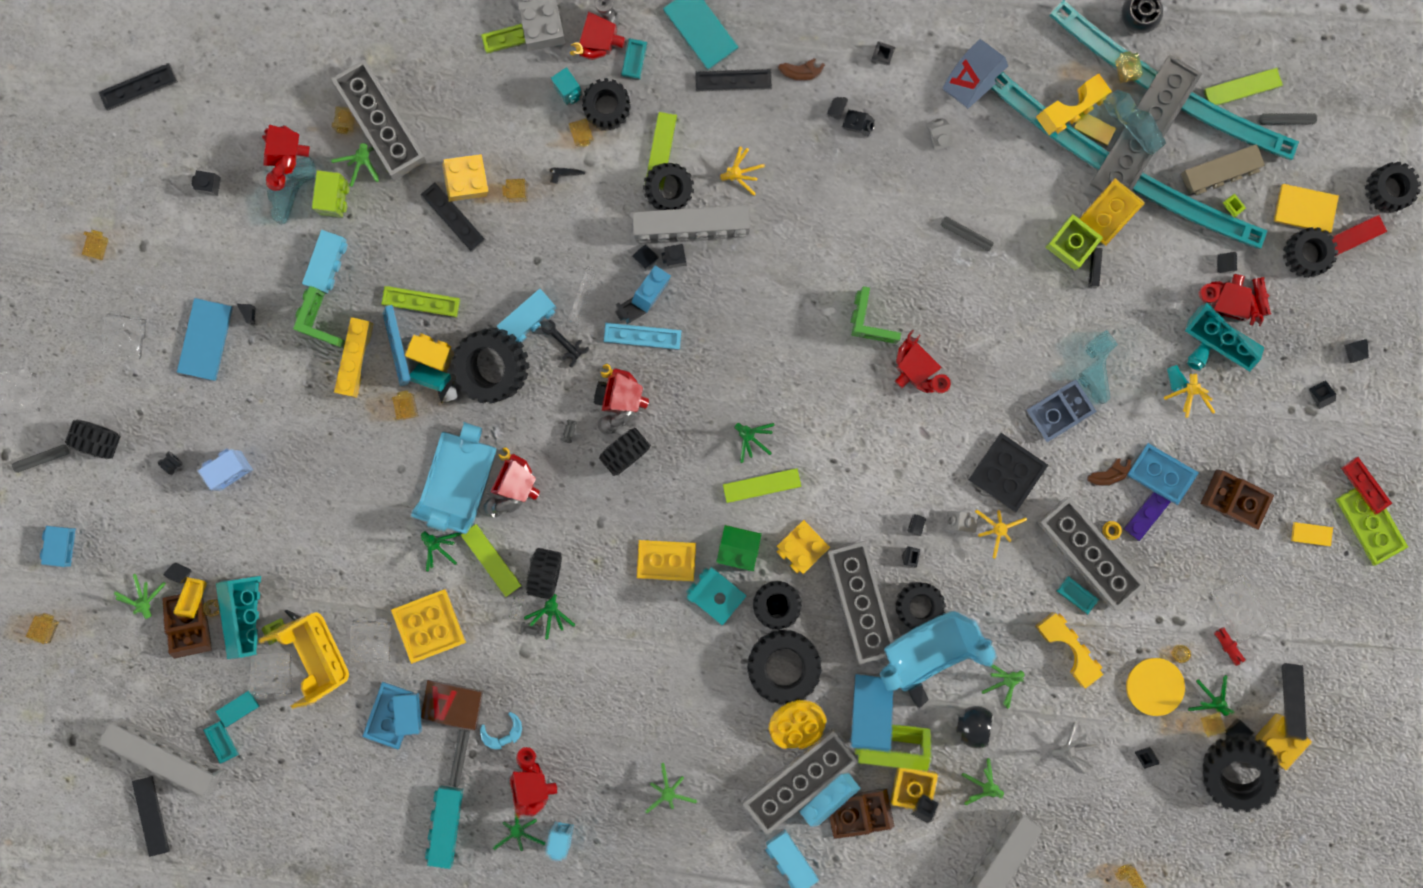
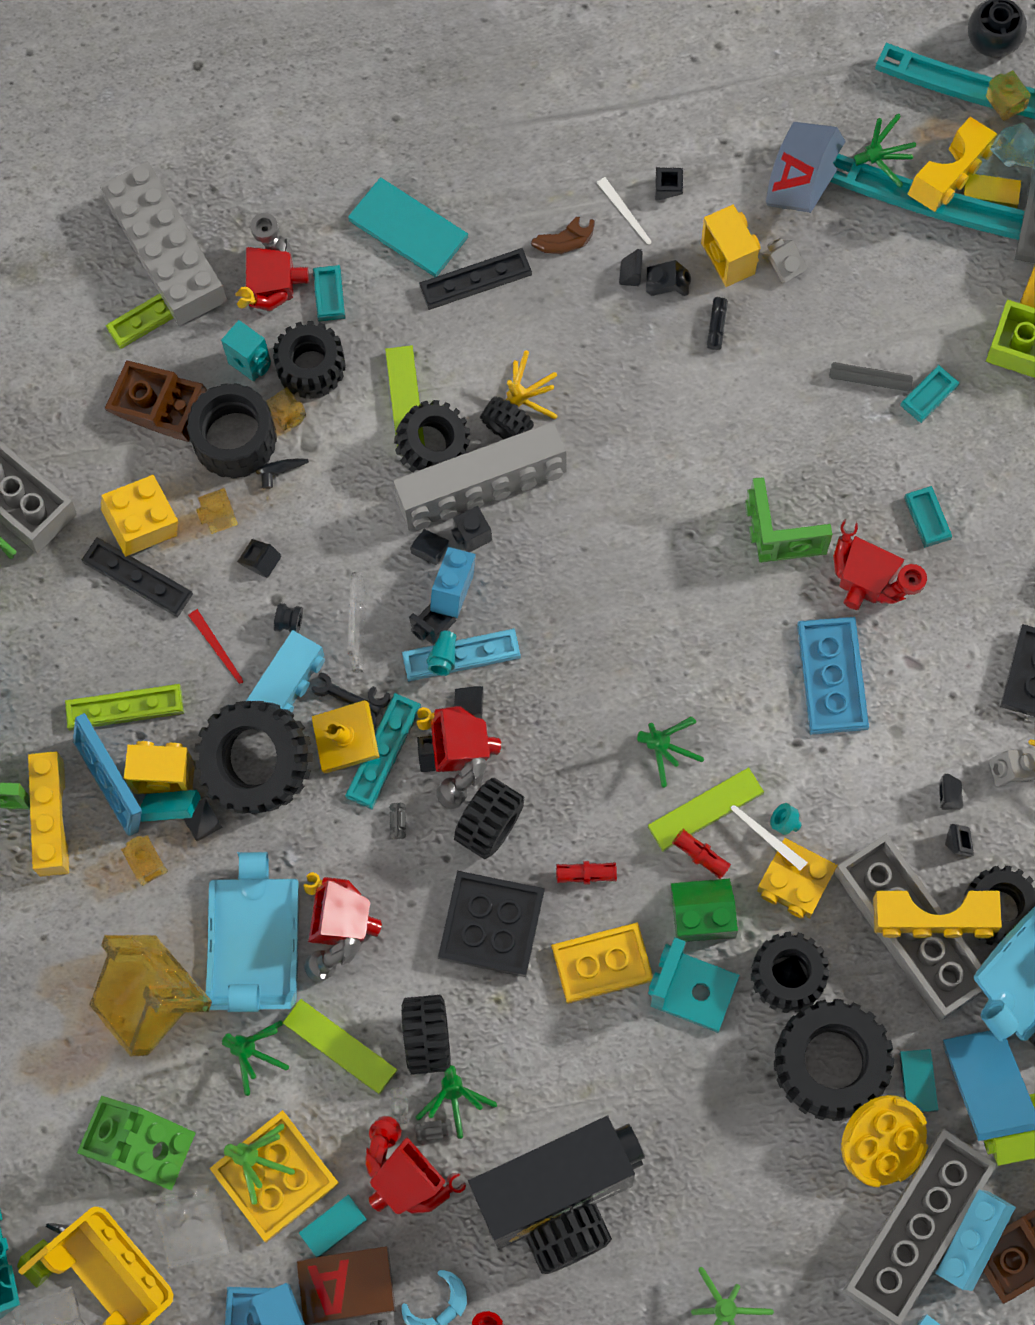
camera: 10 degrees left, 15 degrees down
(350, 579) = (126, 1138): none -> bright green bracket
(381, 492) = (143, 992): none -> clear yellow windscreen
(415, 611) = (247, 1156): none -> bright green plant
(454, 666) = (333, 1226): none -> teal tile
(483, 256) = (203, 627): none -> red sticker
(500, 99) = (154, 399): none -> reddish brown slope
(505, 654) = (406, 1178): none -> red torso
(533, 117) = (223, 401): none -> black tyre
(534, 229) = (260, 558): none -> black slope
(540, 277) = (288, 618): none -> black wheel
(552, 367) = (345, 737): none -> yellow tile
(574, 383) = (390, 739): none -> teal tile
(590, 722) = (568, 1238): none -> black tyre
(591, 690) = (557, 1178): none -> black brick
(606, 515) = (491, 923): none -> black plate
(630, 334) = (442, 657): none -> teal cone
(638, 368) = (470, 699): none -> black slope
(674, 502) = (586, 872): none -> red pin
(720, 189) = (505, 418): none -> black tyre
(749, 513) = (701, 853): none -> red pin
(806, 539) = (790, 855): none -> white sticker
(808, 508) = (785, 819): none -> teal tile
(832, 693) = (919, 1079): none -> teal tile
(841, 41) = (614, 197): none -> white sticker
(871, 425) = (832, 675): none -> dark azure tile
(880, 164) = (717, 323): none -> black axle
(900, 610) = (898, 914): none -> yellow arch
(906, 114) = (730, 245): none -> yellow brick
(969, 340) = (928, 516): none -> teal tile
(1001, 257) = (929, 394): none -> teal tile
(1025, 80) = (875, 153): none -> green plant

